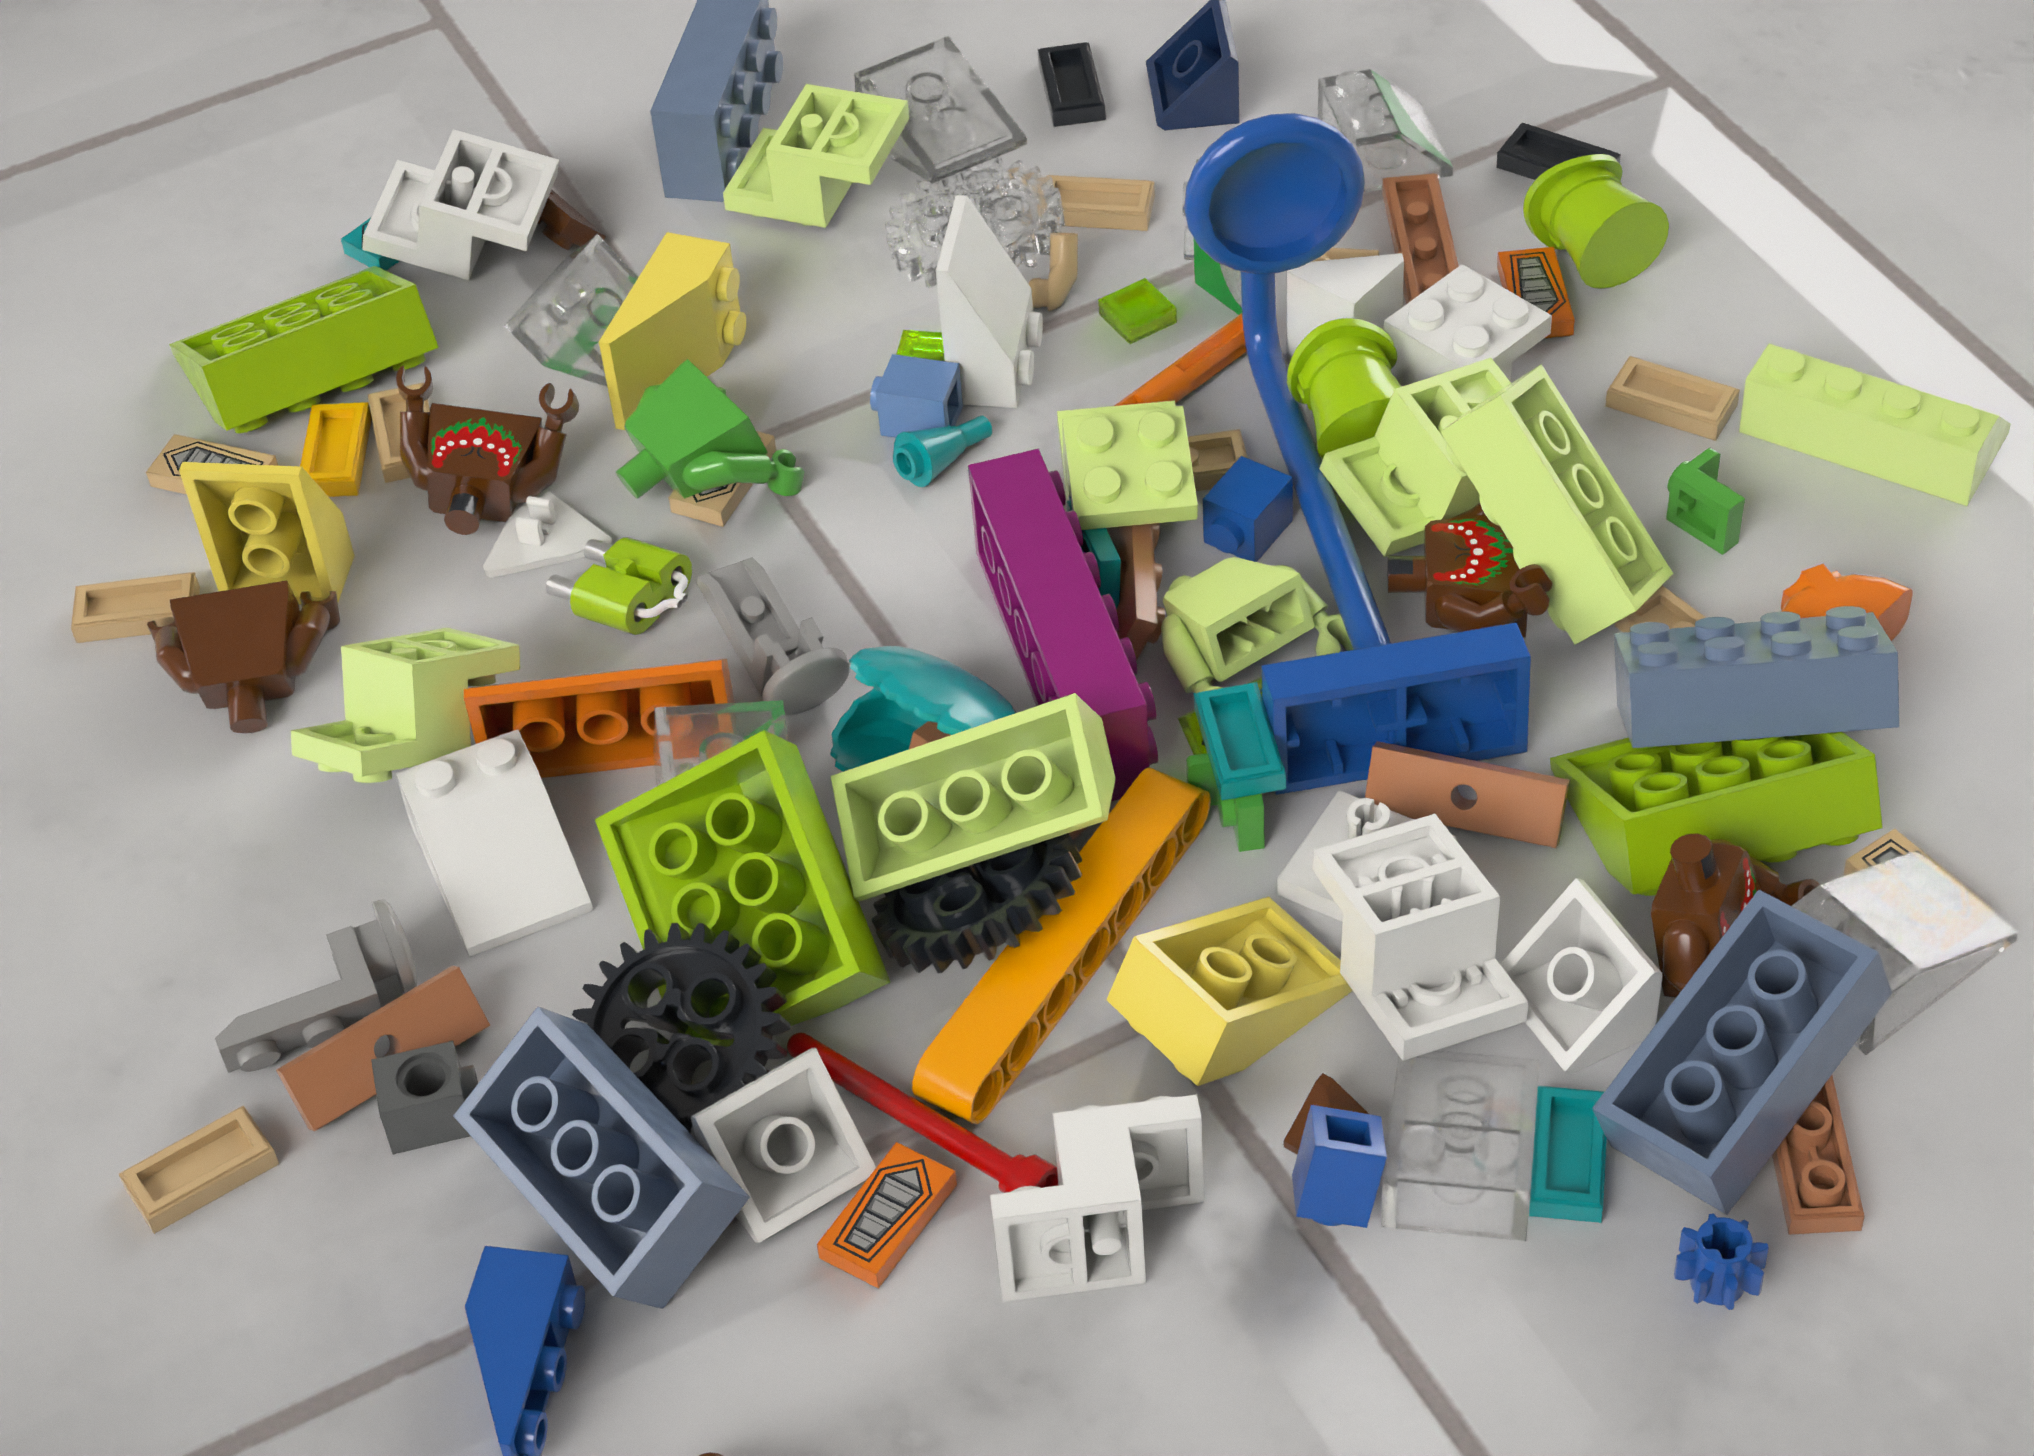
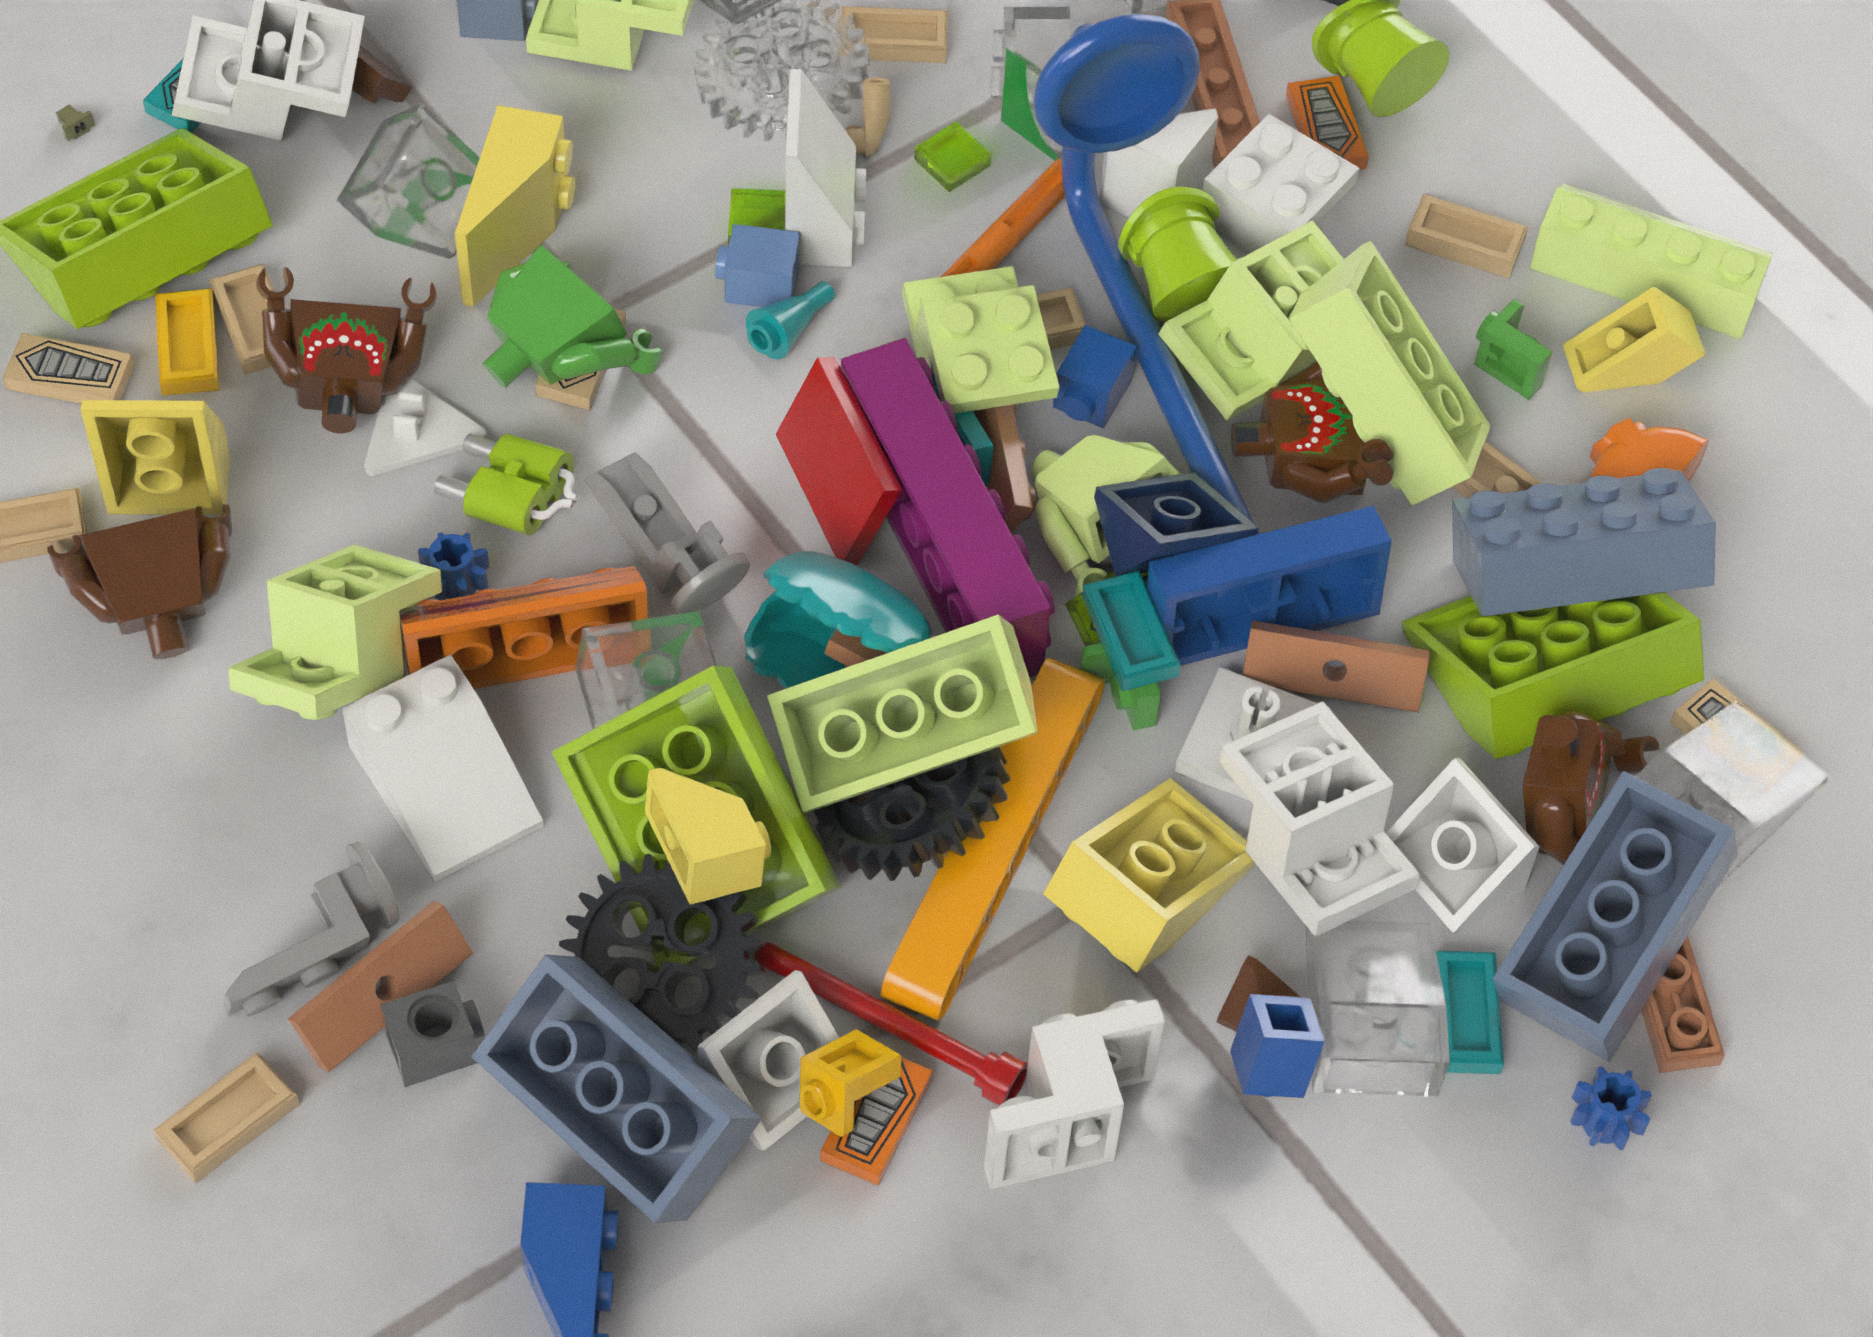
camera: 15 degrees left, 10 degrees up
(273, 258) = (74, 123): none -> olive piece
(548, 652) = (459, 565): none -> blue gear
(734, 903) = (705, 836): none -> light yellow slope
(848, 1160) = (842, 1074): none -> yellow bracket
(958, 569) = (838, 461): none -> red tile
(1286, 628) = (1165, 519): none -> dark blue slope
(1843, 500) = (1635, 345): none -> light yellow slope

